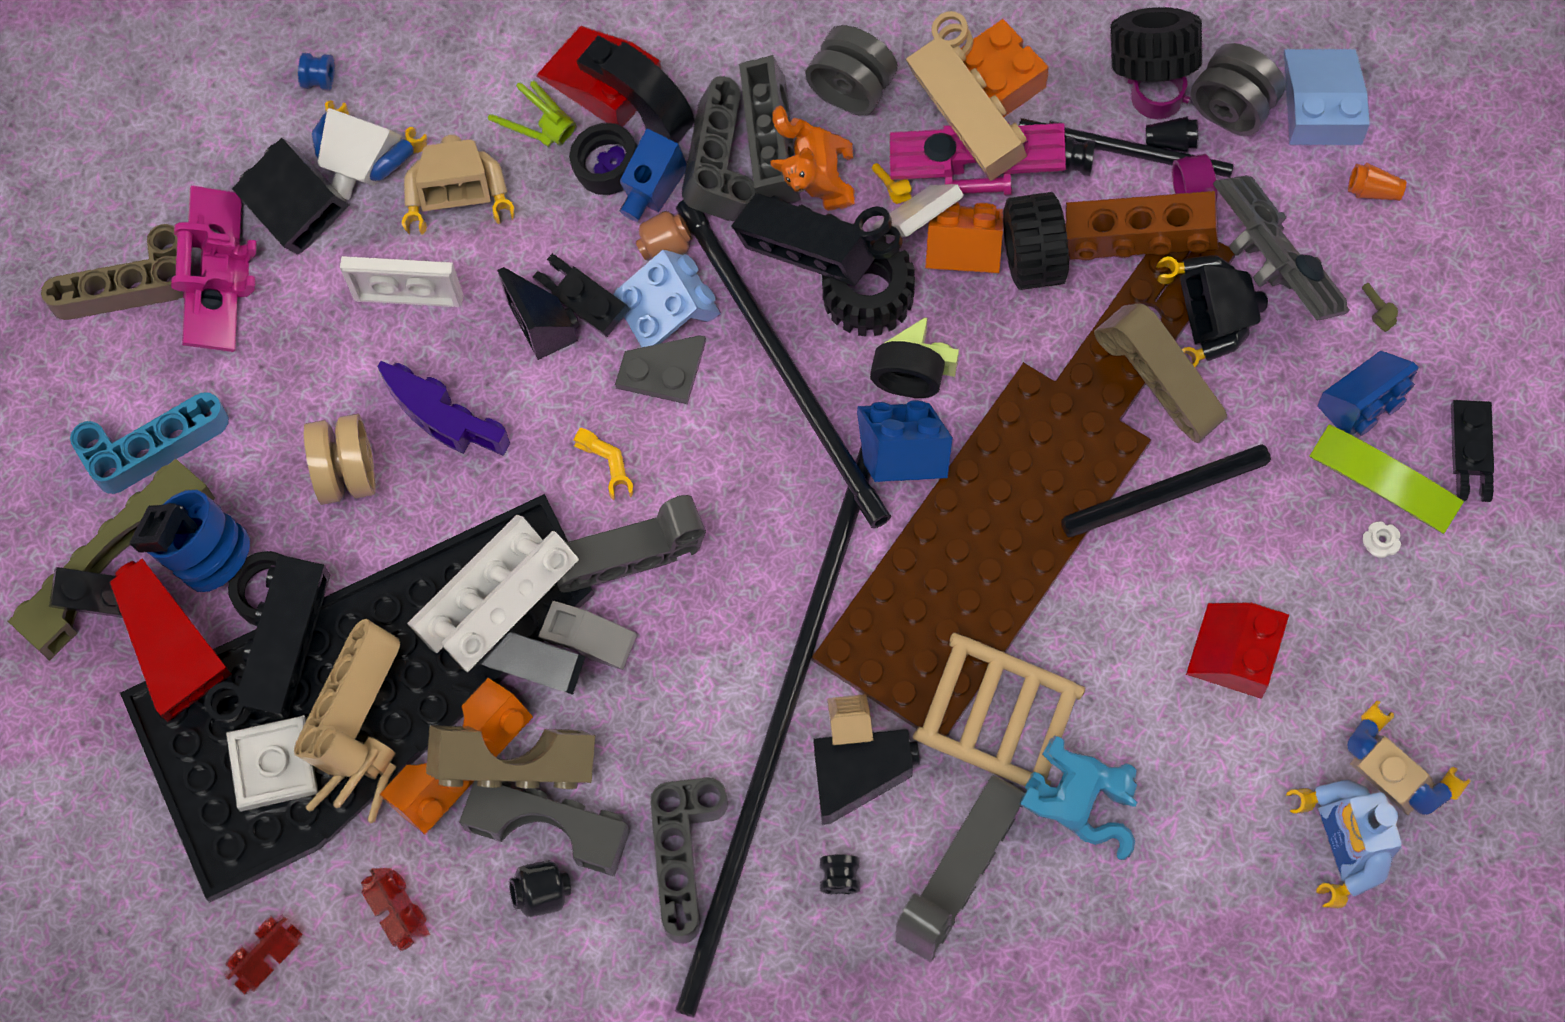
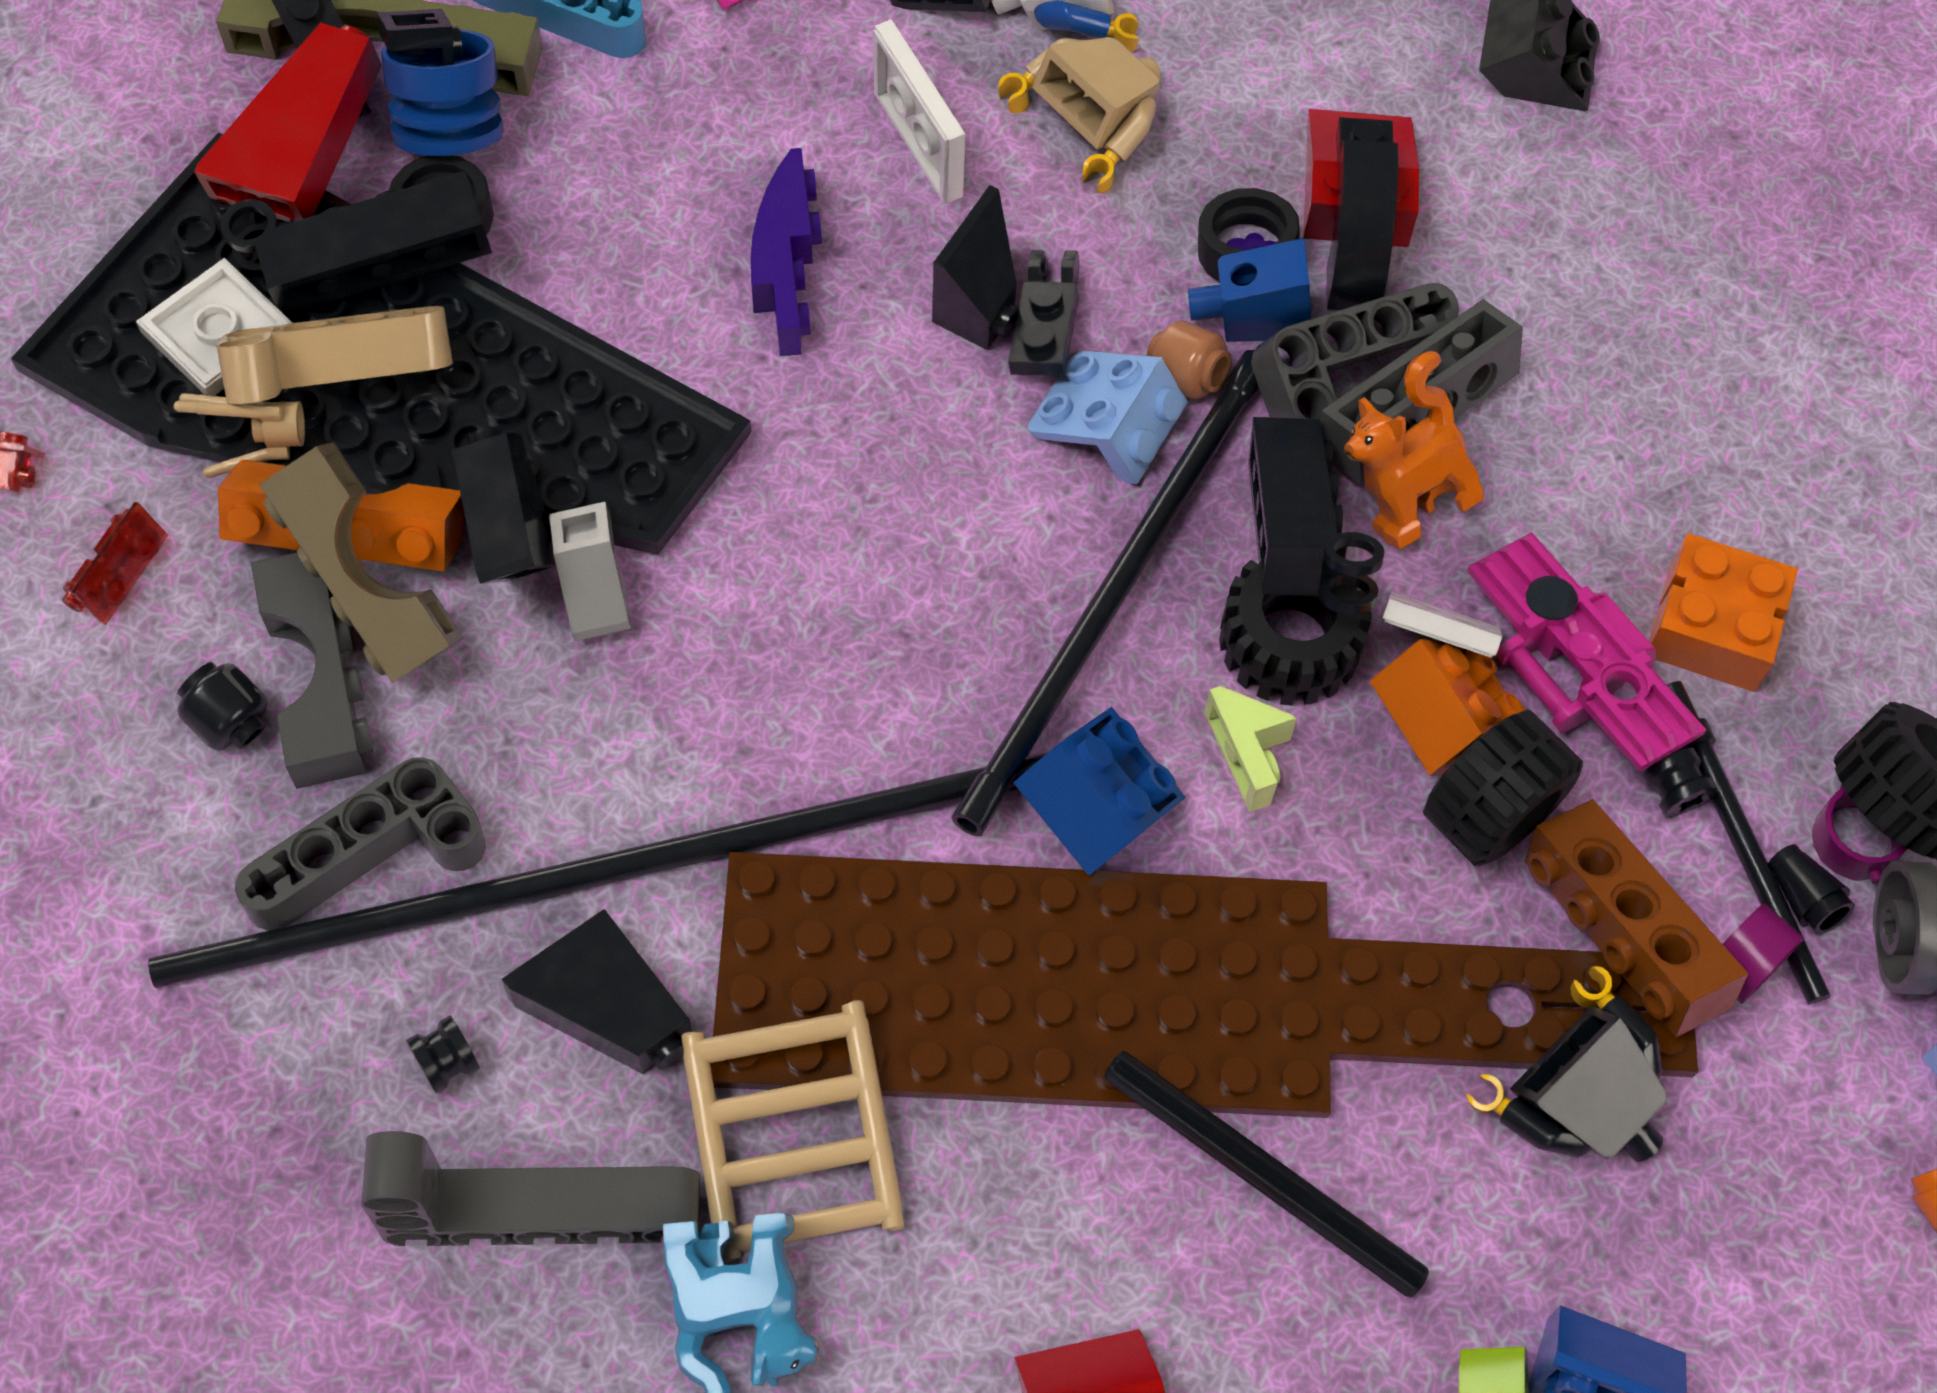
camera: 50 degrees right, 5 degrees down
(339, 459) = (642, 175): tan wheel -> none
(492, 592) = (559, 419): white fence -> none
(554, 122) = (1254, 161): lime plant -> none
(590, 443) = (852, 478): yellow arm -> none
(636, 546) = (732, 547): dark grey beam -> none
(662, 369) = (1014, 462): dark grey wing -> none
(850, 719) = (659, 938): tan slope -> none
(851, 70) = (1579, 432): dark grey wheel -> none
(899, 190) = (1463, 593): yellow hand -> none
(907, 369) = (1204, 736): black tyre -> none
(963, 101) = (1630, 578): tan hinge -> none
(1164, 368) = (1434, 1066): dark tan beam -> none
(1283, 261) = (1734, 1120): dark grey piece -> none
(1387, 312) = (1757, 1340): olive hand -> none

